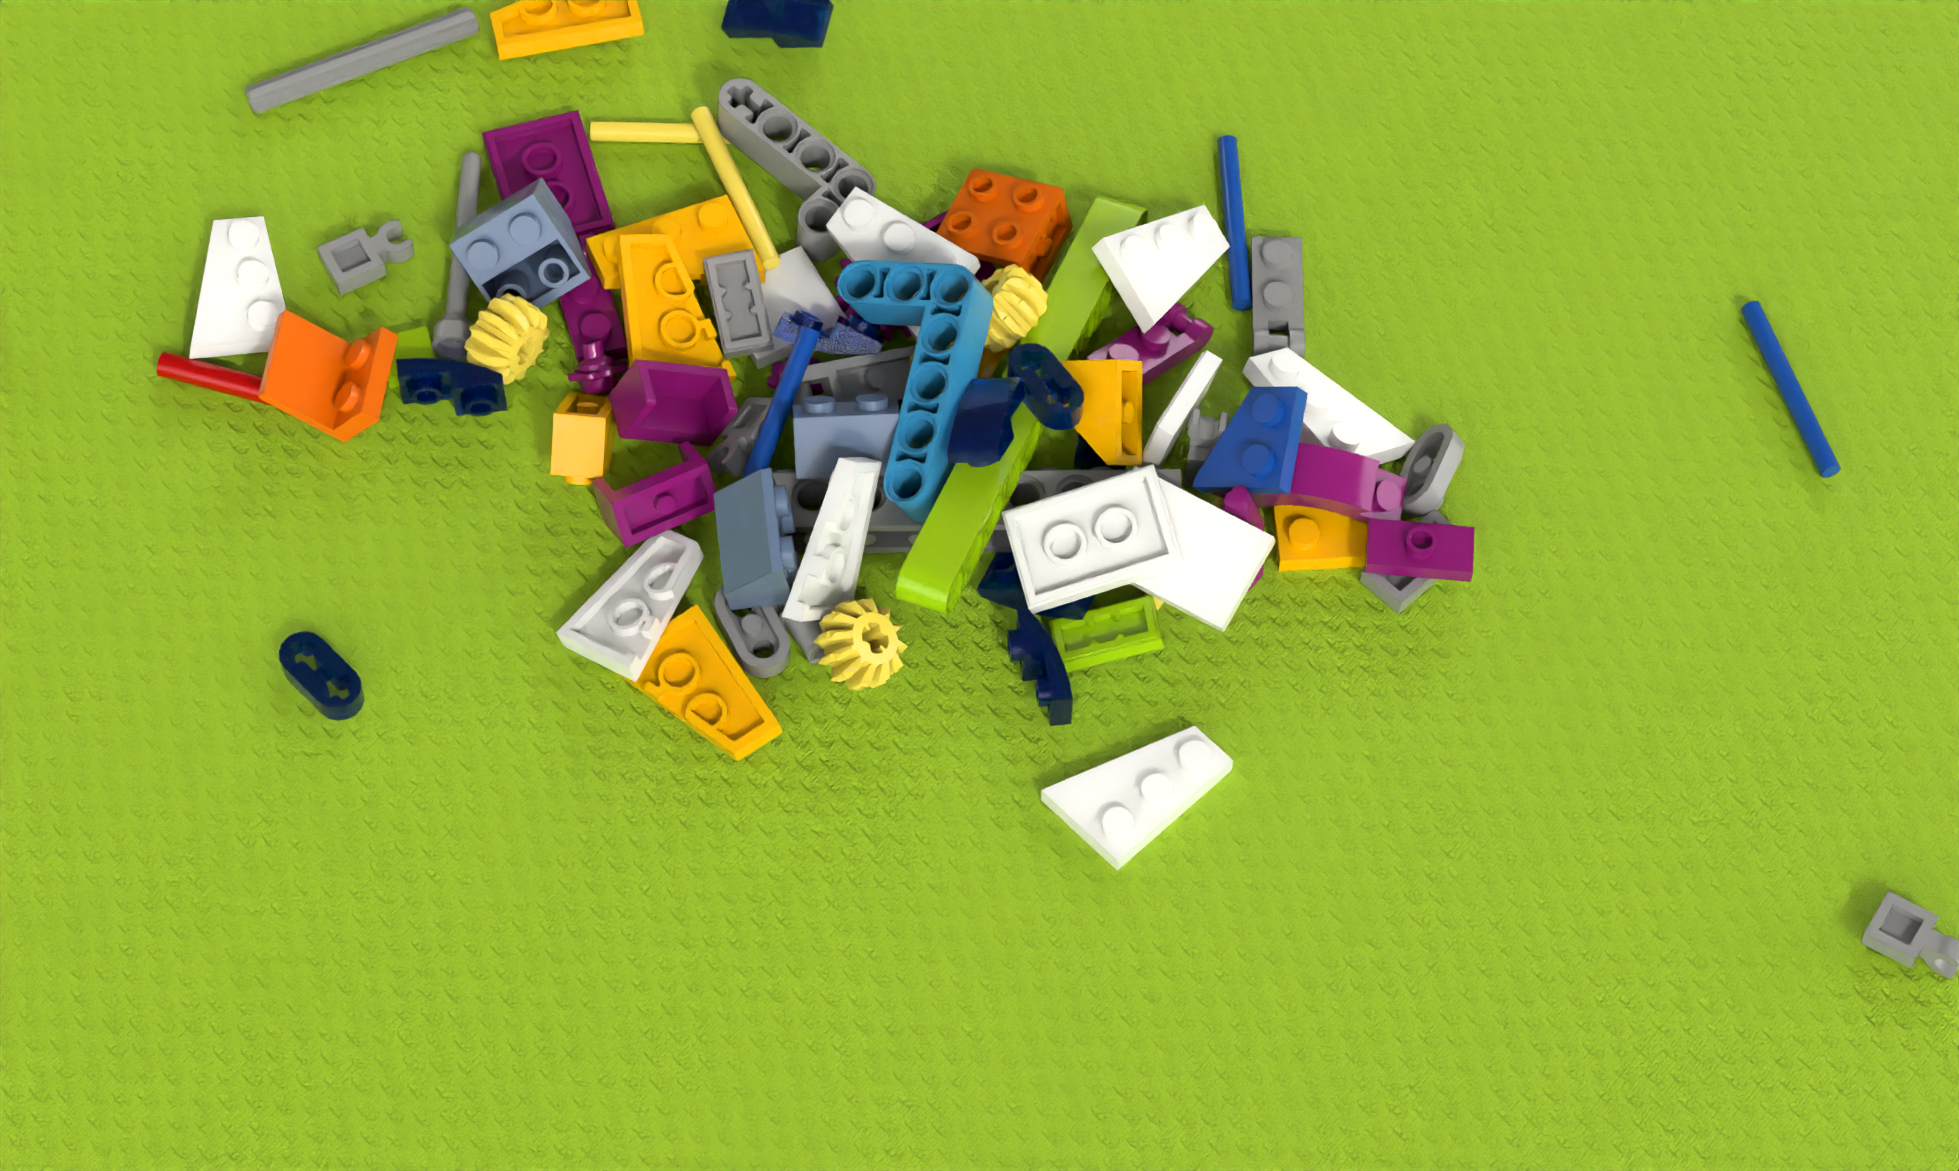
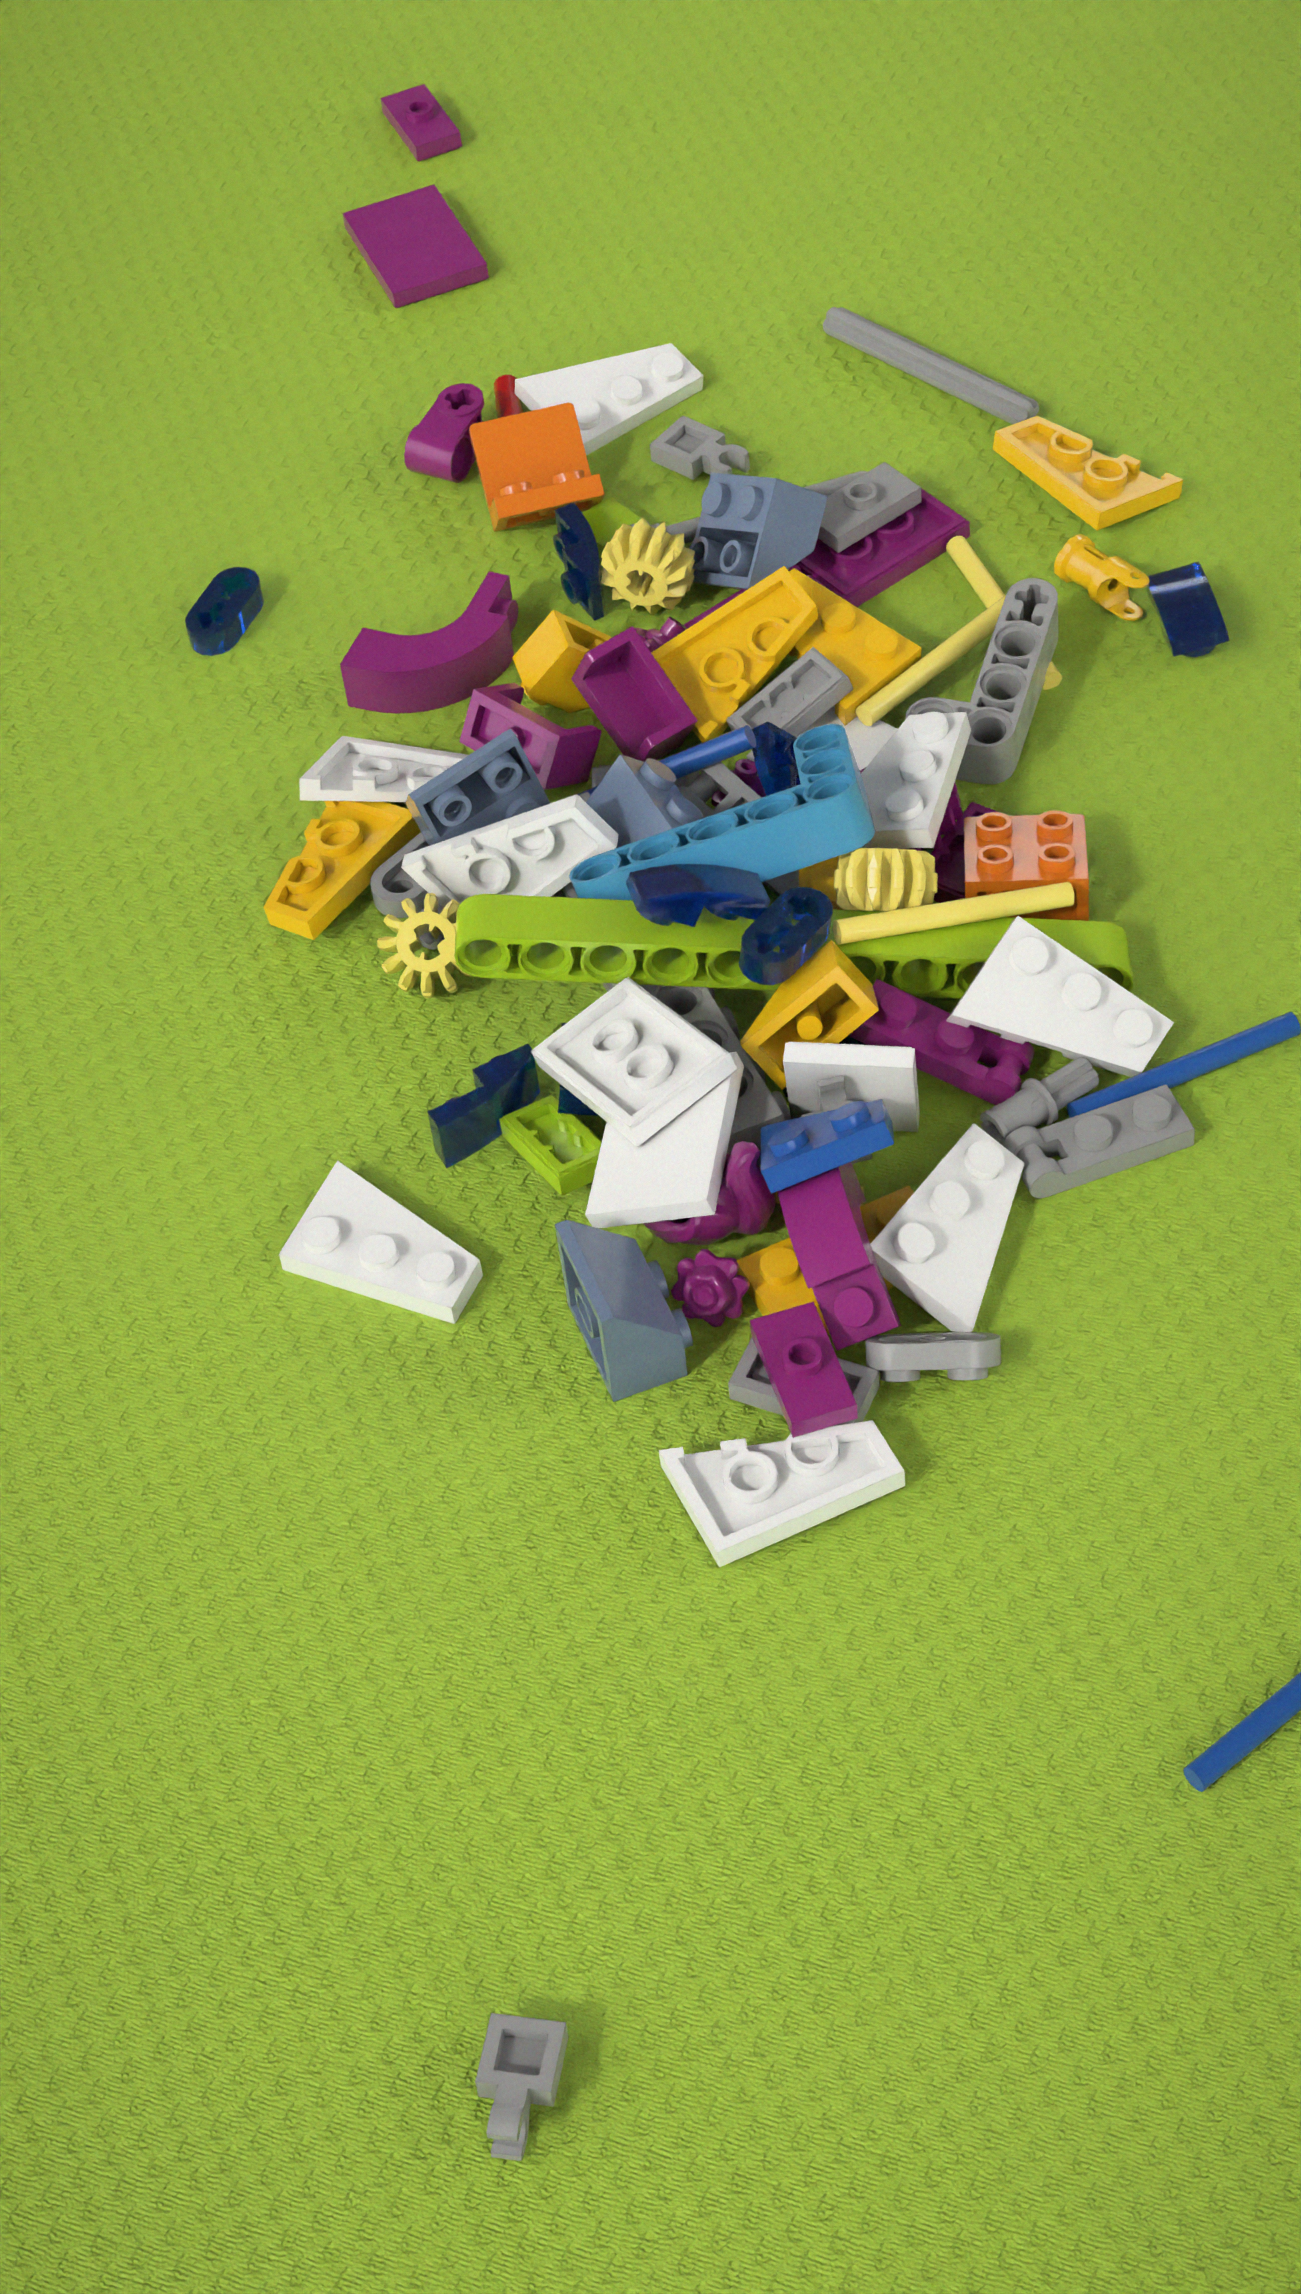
camera: 75 degrees right, 10 degrees down
(216, 424) = (442, 441): none -> magenta piece
(510, 557) = (437, 667): none -> magenta arch
(520, 157) = (866, 506): none -> light grey plate
(706, 51) = (1101, 575): none -> yellow piece
(1059, 277) = (953, 913): none -> light yellow bar
(1225, 318) = (1040, 1100): none -> light grey axle
(1300, 584) = (710, 1288): none -> magenta plant
(1307, 648) = (622, 1309): none -> sand blue slope
(1497, 612) = (776, 1489): none -> white wing

